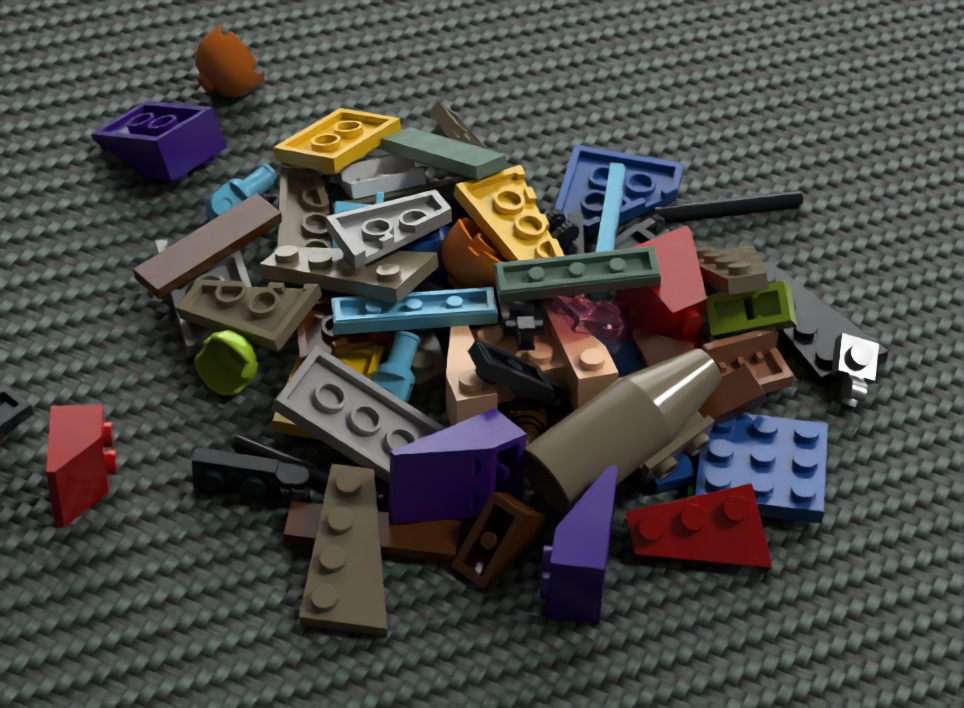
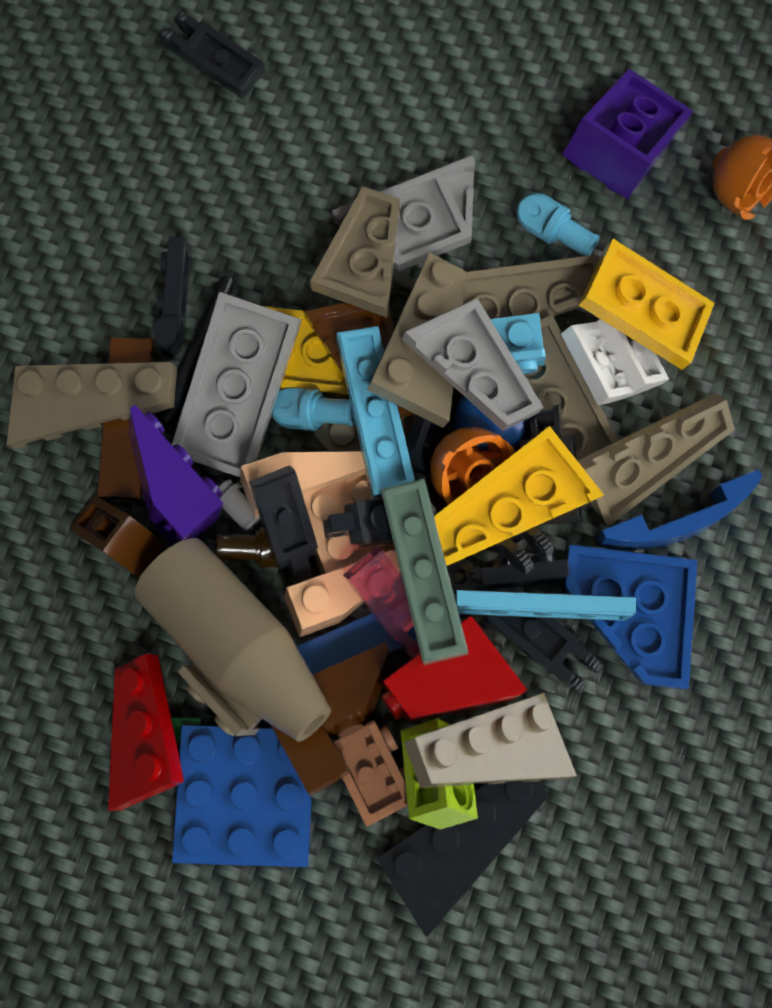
camera: 85 degrees right, 30 degrees up
(78, 459) = (155, 136): red slope -> none
(207, 246) = (464, 203): tile -> none
(226, 363) = (310, 250): lime hair -> none
(444, 153) = (620, 413): sand green tile -> none
(527, 124) = (636, 536): none -> blue slope
(580, 555) = (64, 612): dark purple slope -> none
(730, 205) = (641, 747): black bar -> none
(856, 364) = (391, 894): plate -> none

